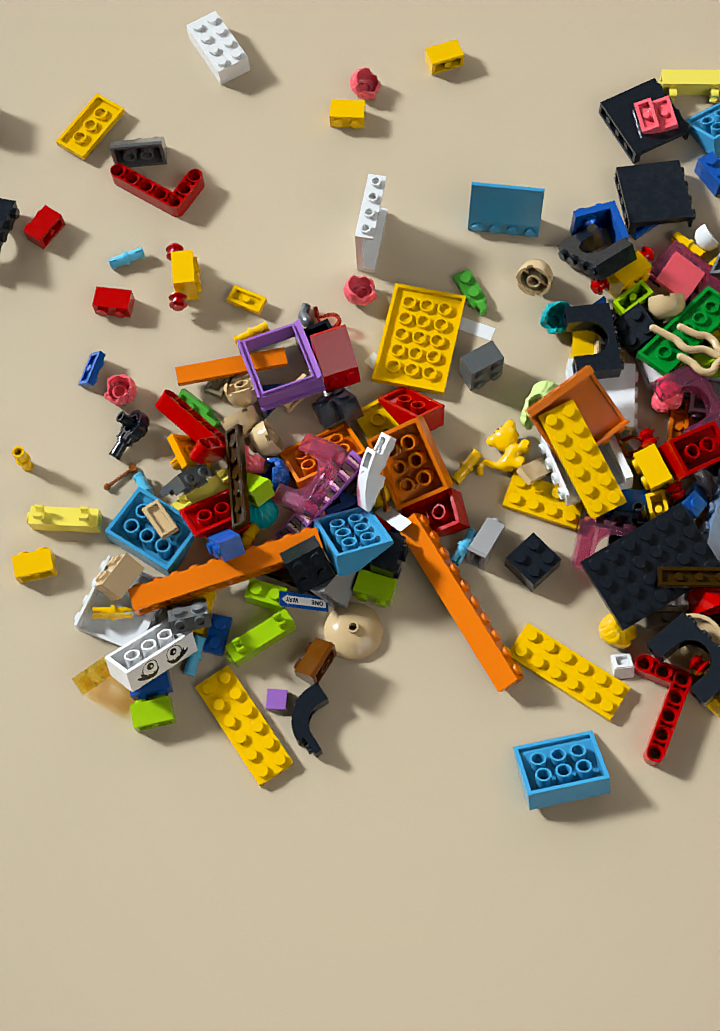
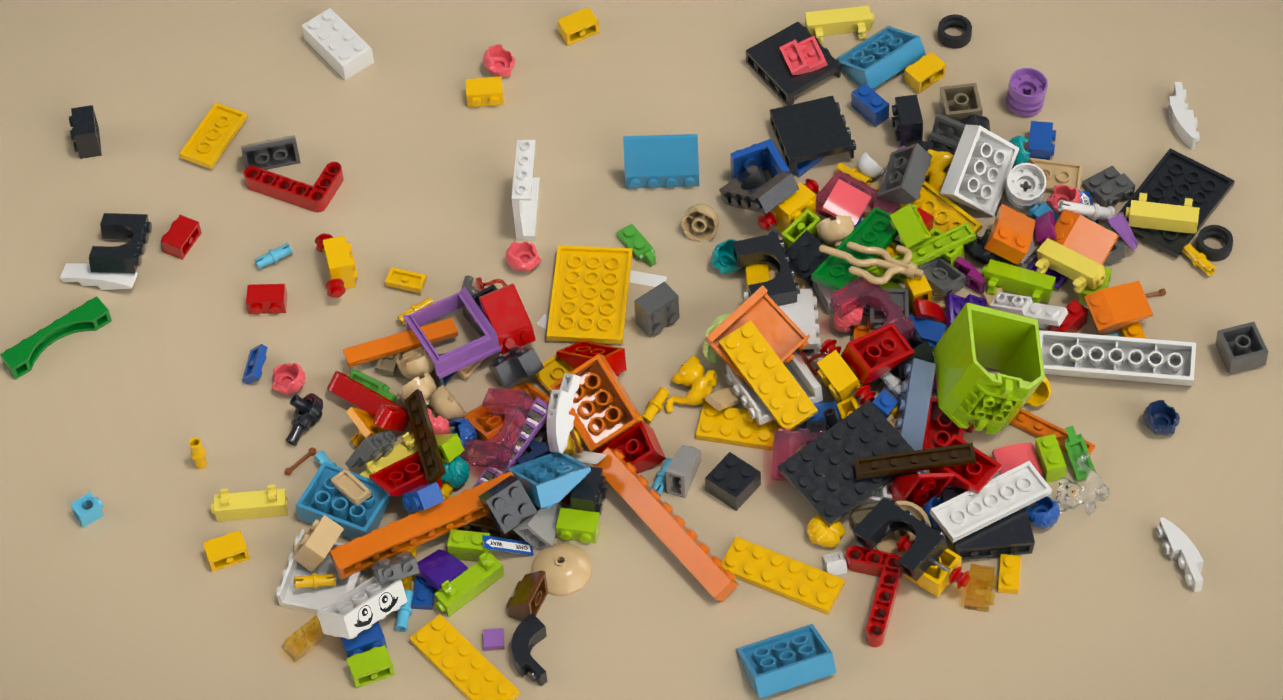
camera: 10 degrees left, 15 degrees down
(234, 617) = (439, 568): none -> dark purple slope

